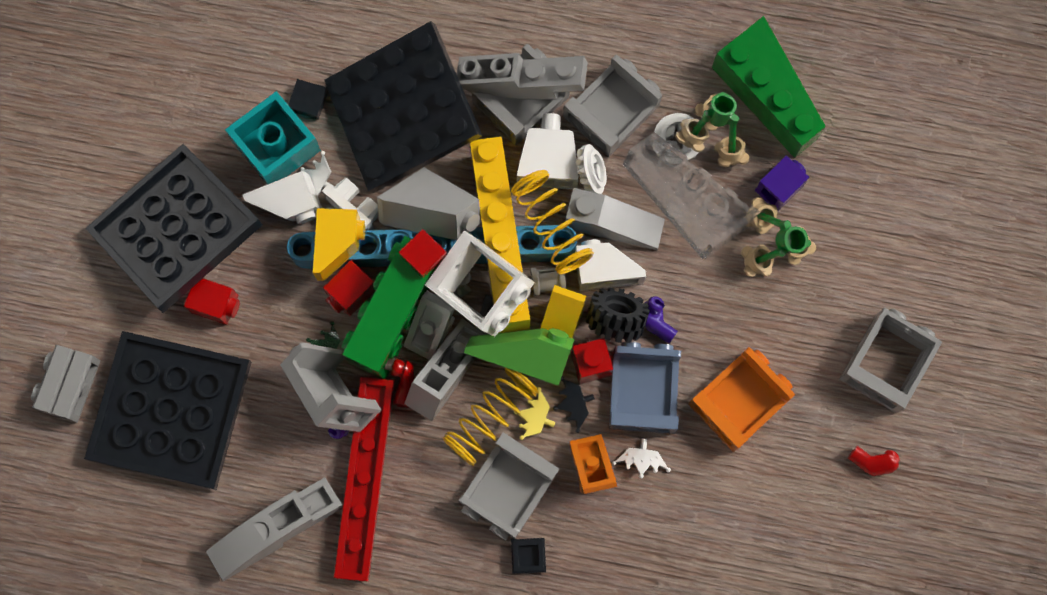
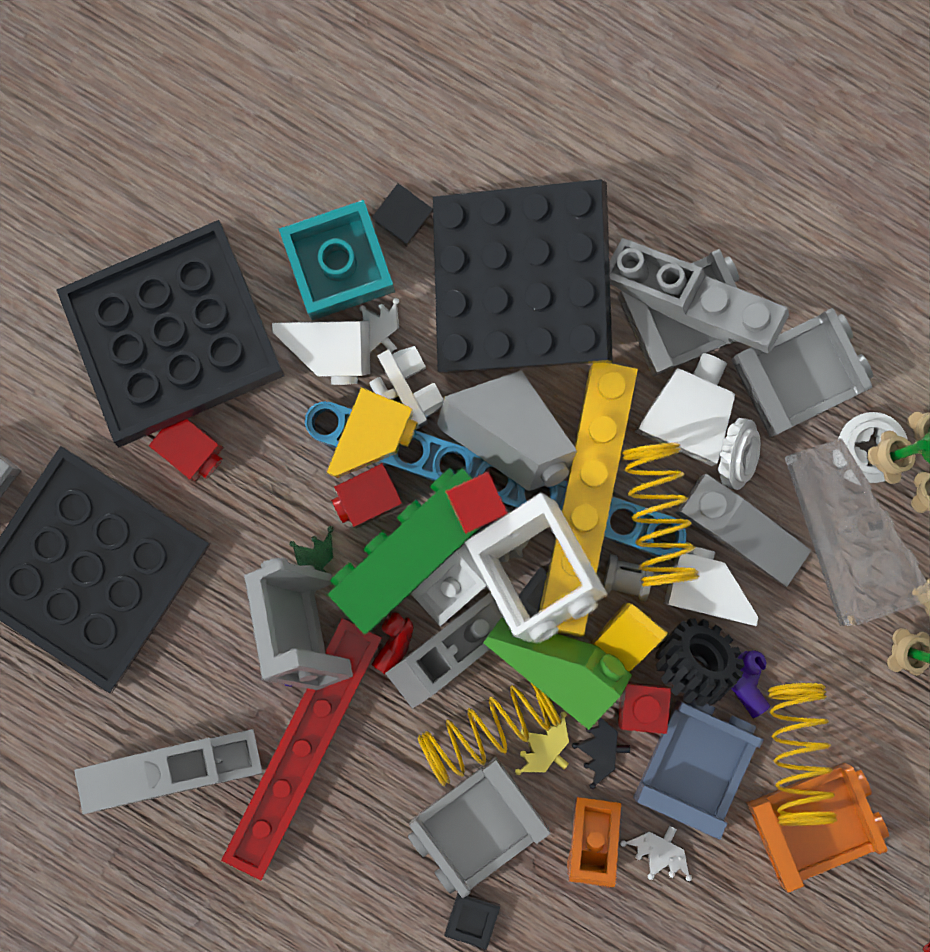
camera: 25 degrees right, 10 degrees up
(717, 396) = (797, 694): none -> yellow piece

